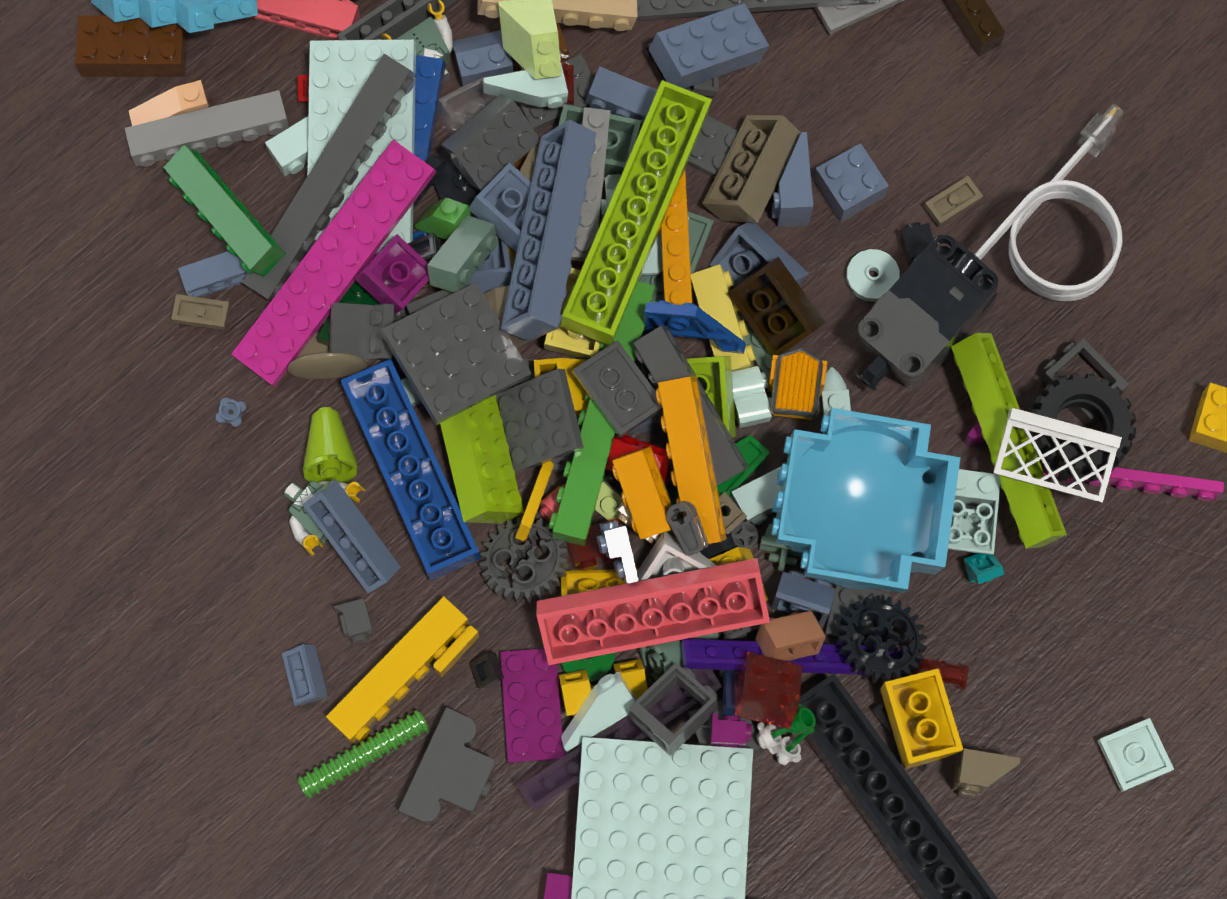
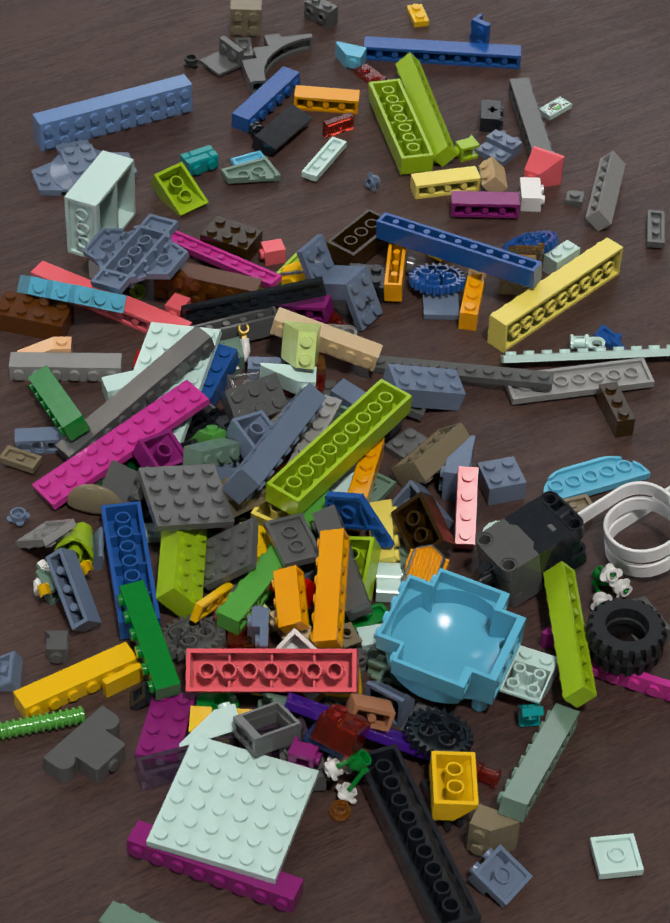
camera: 15 degrees right, 30 degrees down
(282, 444) = (46, 534): none -> light grey plate
(353, 432) = (98, 538): none -> sand blue slope
(476, 594) = (149, 640): none -> green brick
(687, 529) = (314, 622): dark grey piece -> none
(791, 771) = (340, 805): none -> clear orange plate
(823, 257) = (466, 507): none -> brick
(966, 144) = (595, 476): none -> medium azure plate
(1004, 826) = (499, 875): none -> sand blue plate
(1017, 656) = (538, 763): none -> sand green brick
(1035, 324) = (609, 575): none -> white plant
(1063, 431) = (611, 622): white fence -> none

